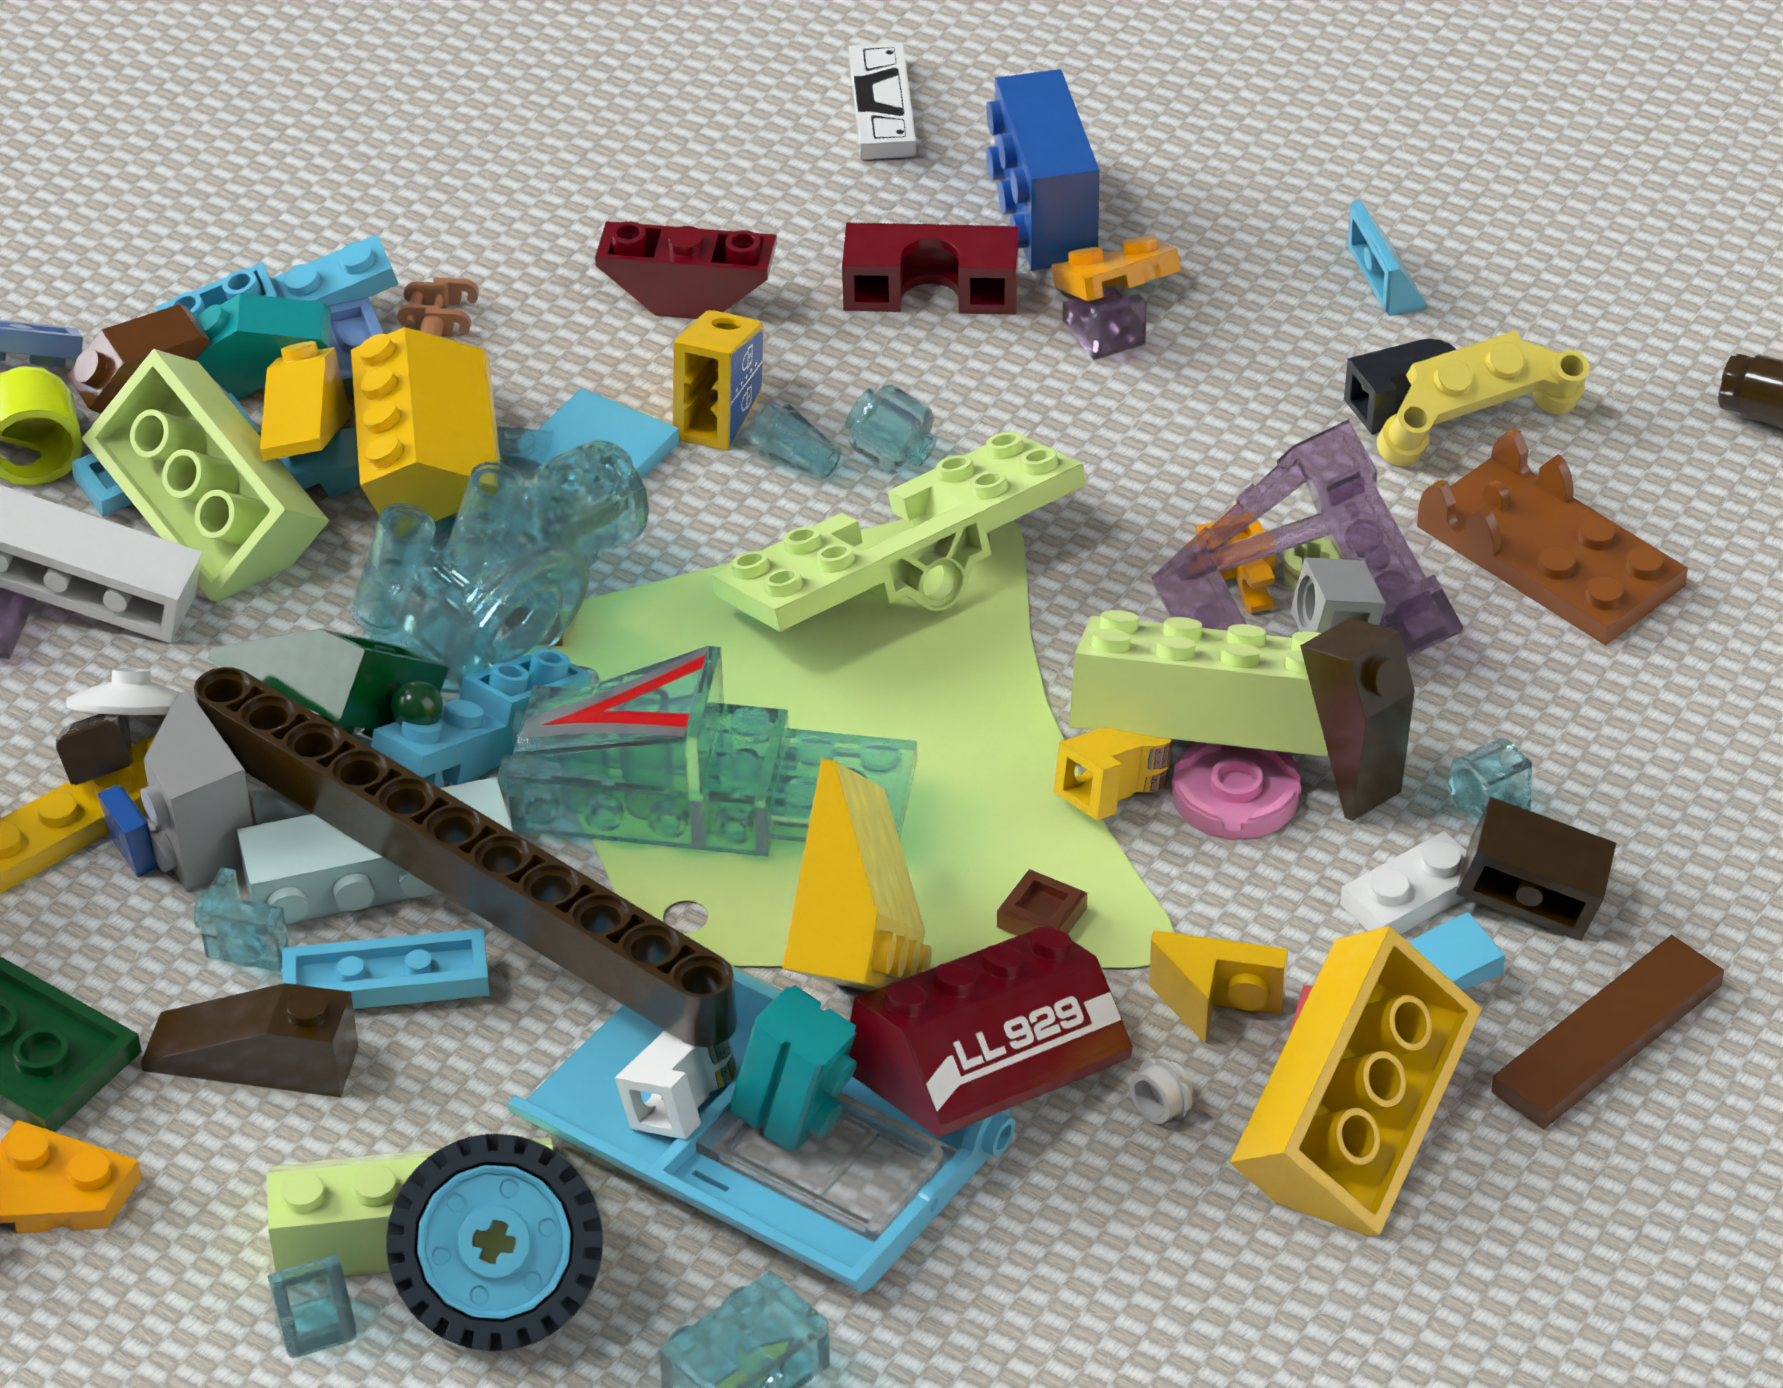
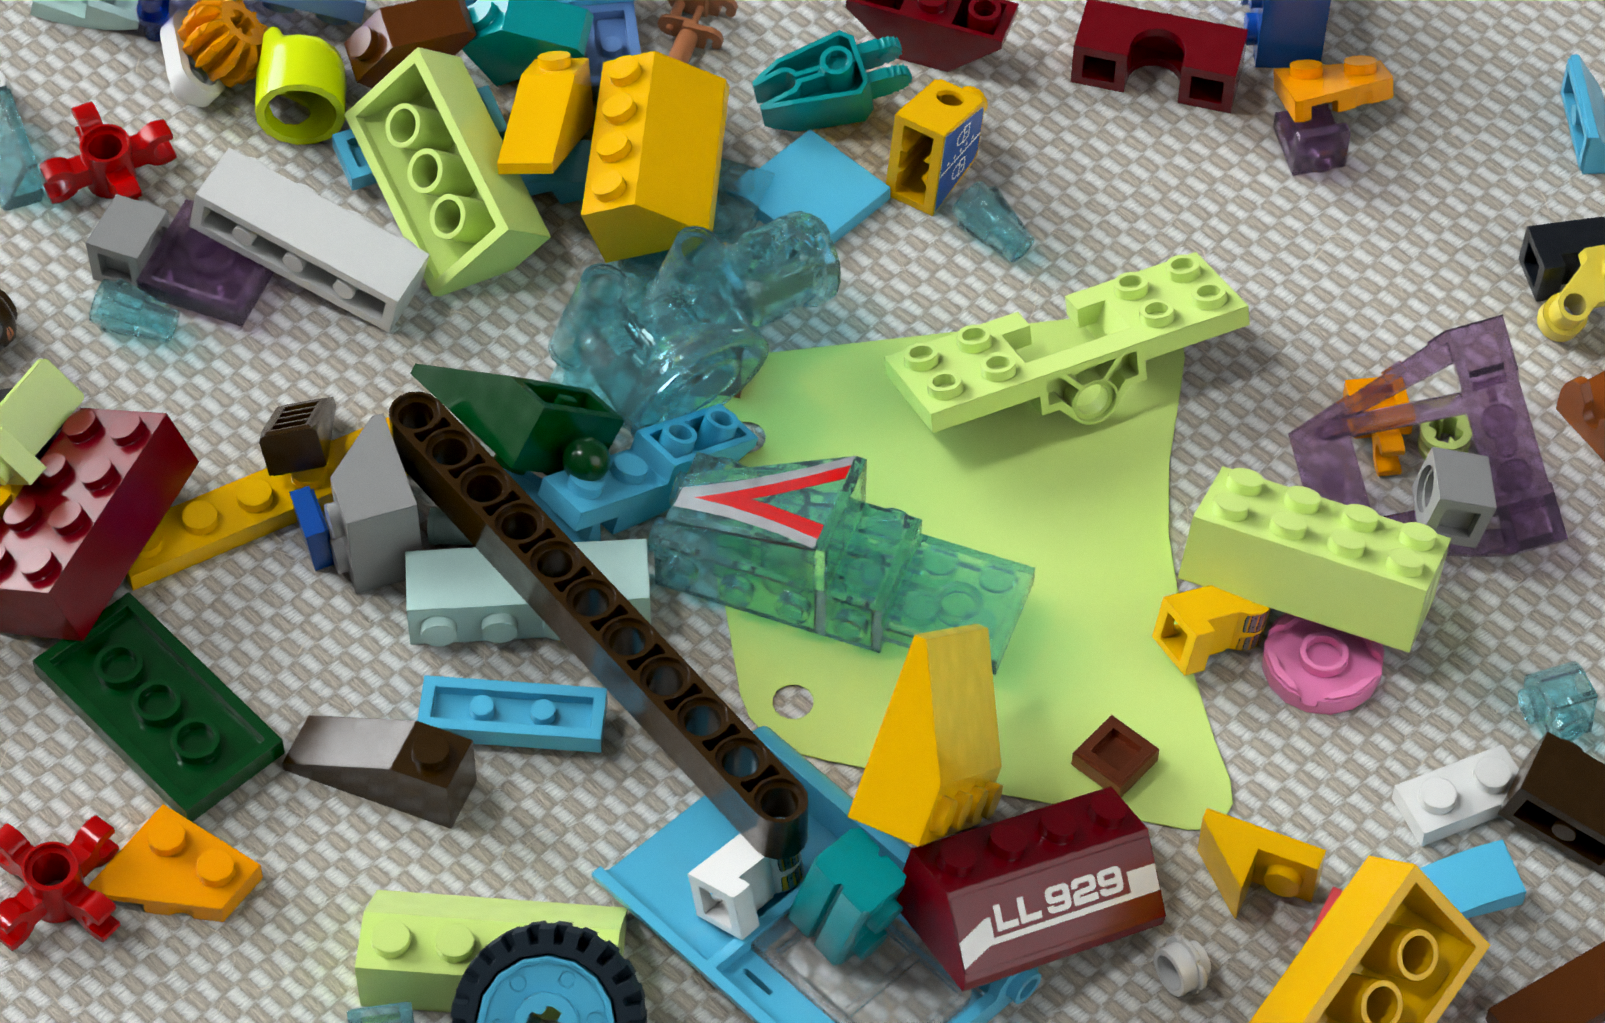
camera: 10 degrees right, 10 degrees up
(126, 695) = (336, 394): white dish -> none
(239, 928) = (389, 648): clear light blue bracket -> none
(593, 339) = (829, 82): none -> teal hinge
(891, 429) = (1084, 225): clear light blue head -> none
(1363, 709) = (1447, 619): dark brown slope -> none

